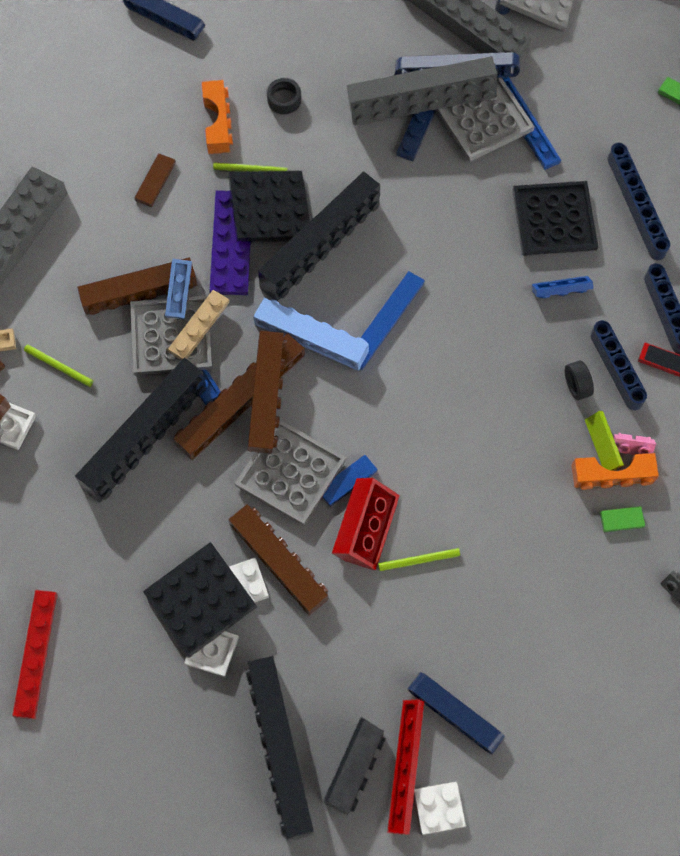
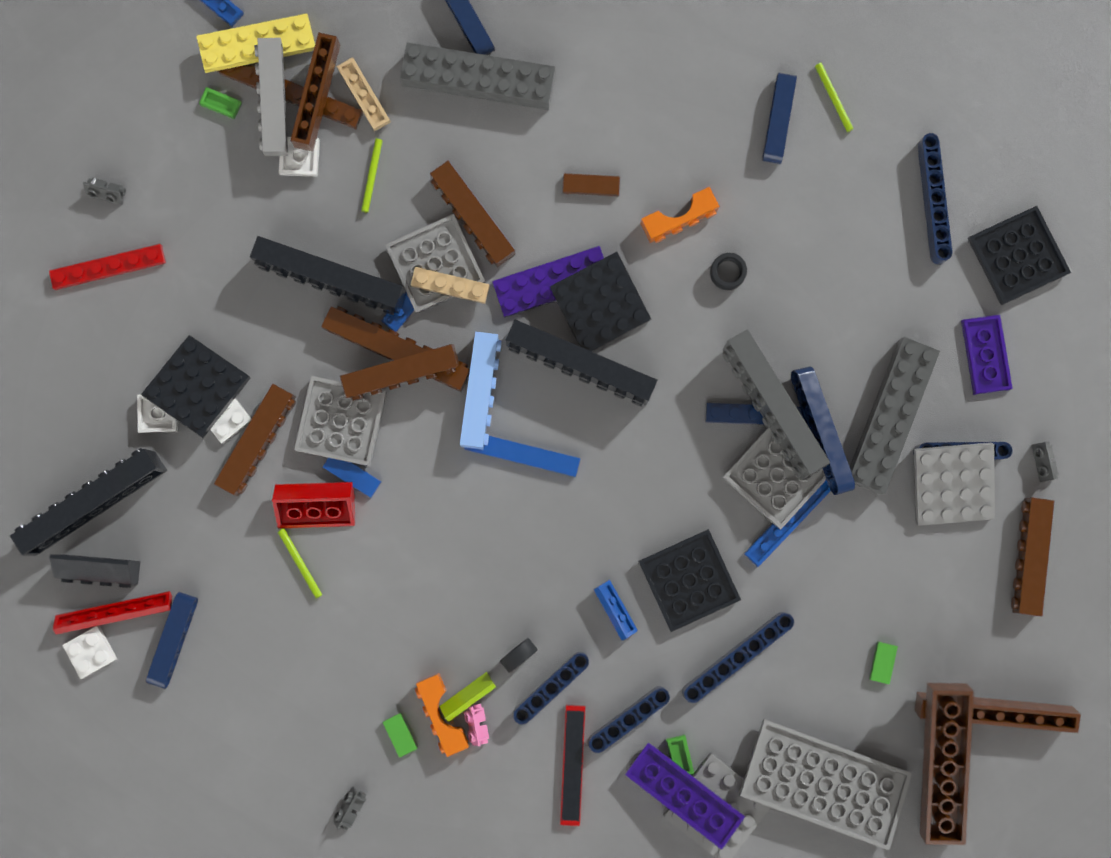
camera: 70 degrees right, 15 degrees up
(178, 289) = (476, 252): medium blue plate -> none
(243, 168) = (637, 269): lime piece -> none

